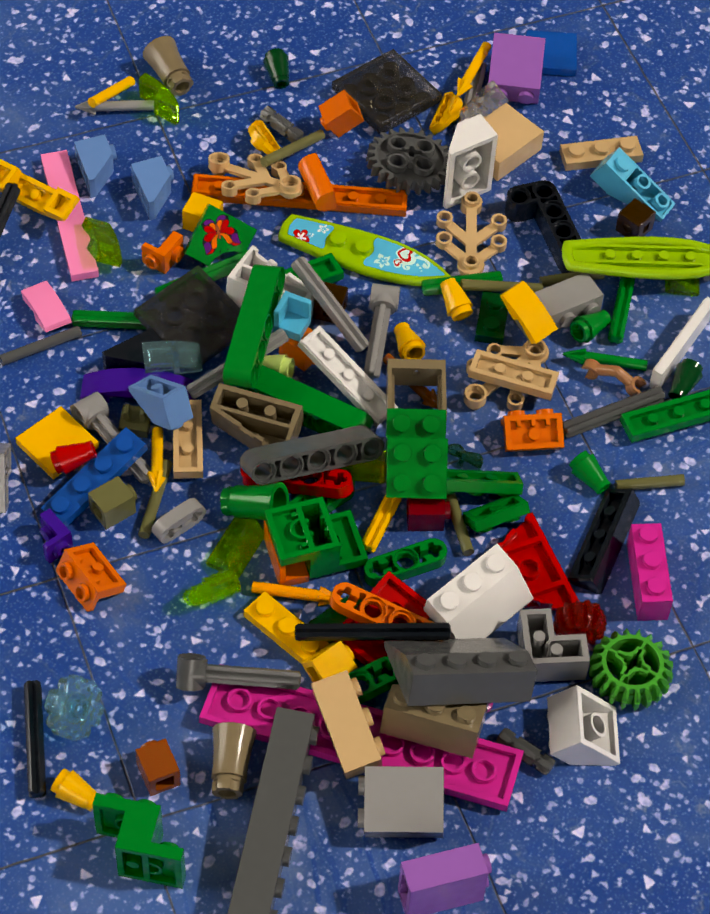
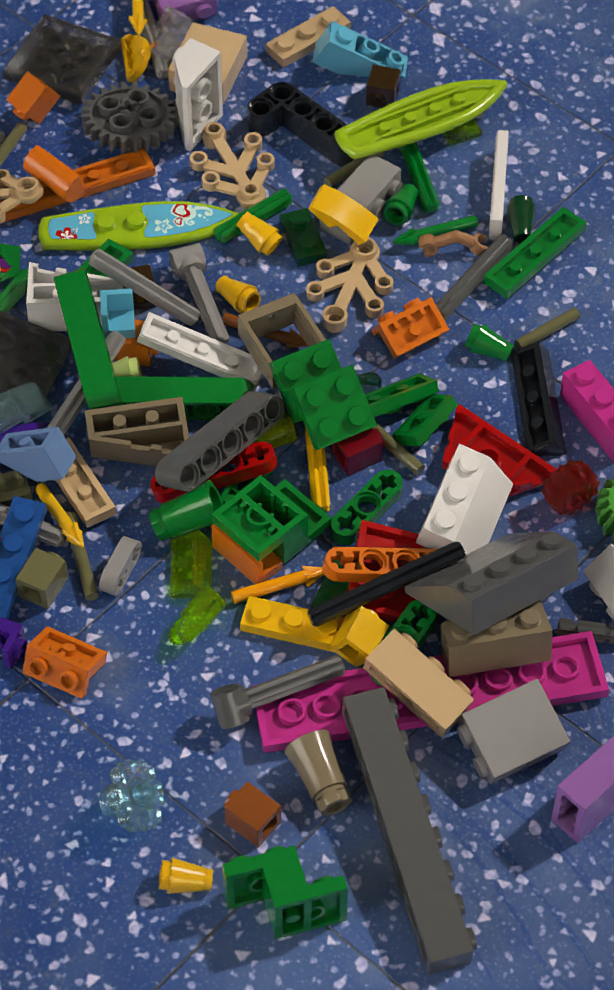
camera: 25 degrees left, 0 degrees up
(34, 739) = (109, 847): black axle -> none
(494, 286) = (286, 205): olive bar -> none
(513, 374) = (361, 281): tan plate -> none
(553, 655) = (577, 521): light grey brick -> none

